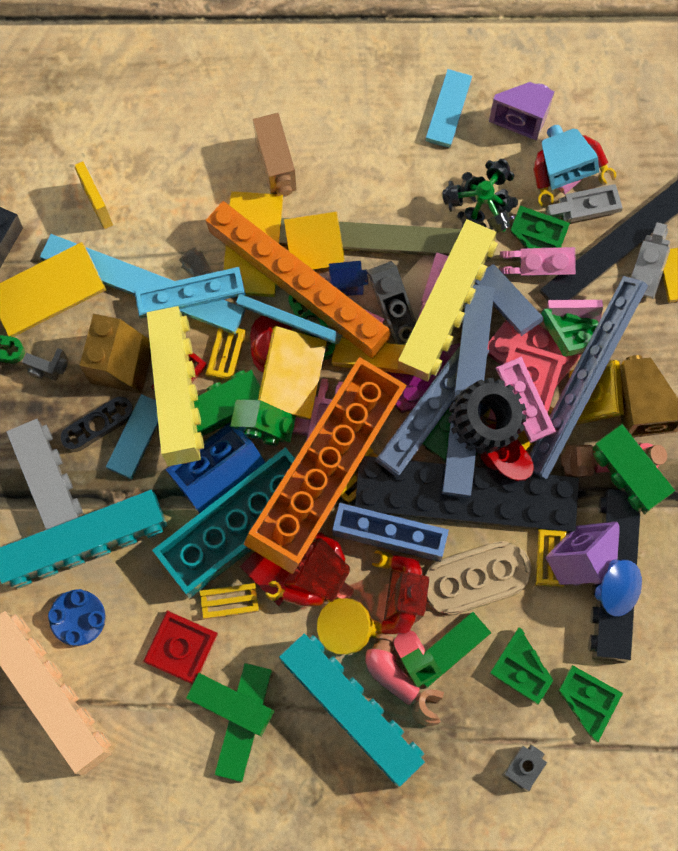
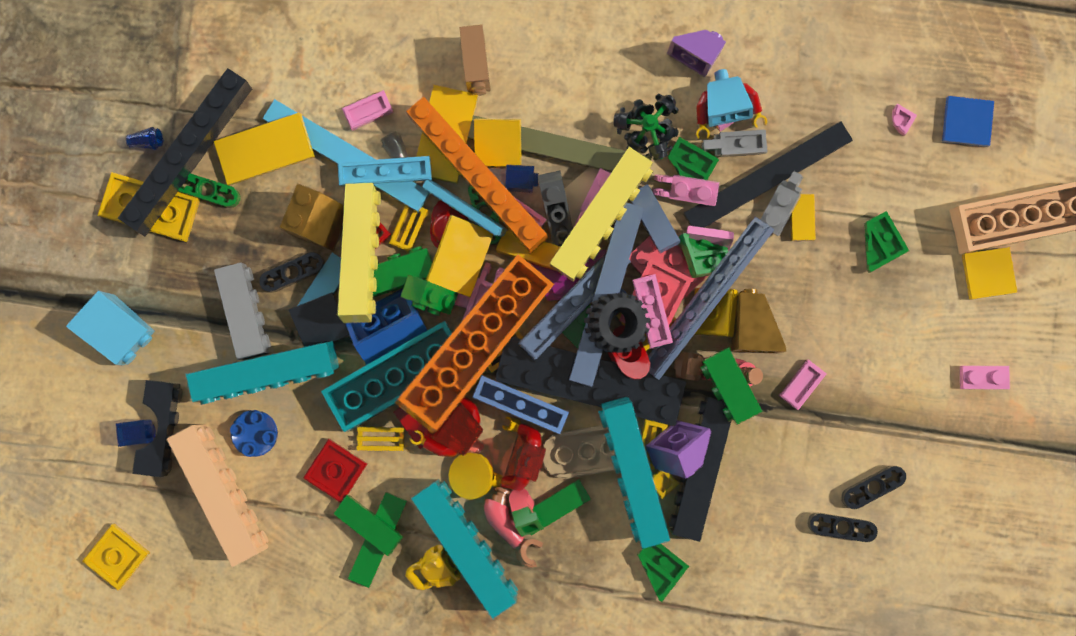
camera: 10 degrees right, 10 degrees up
(39, 367) = (250, 217): dark grey bracket -> none
(93, 195) = (314, 72): yellow tile -> none
(137, 472) = (319, 321): none -> black tile
(159, 231) = (367, 110): none -> bright pink tile
(321, 742) = (436, 568): none -> yellow piece
(448, 108) = (634, 37): medium azure tile -> none
(518, 775) = (589, 615): dark grey brick -> none
(522, 669) = (611, 532): green wing -> none
(539, 588) = (635, 472): none -> teal brick
(572, 601) = (664, 483): none -> yellow tile
(620, 587) = (701, 484): blue dish -> none

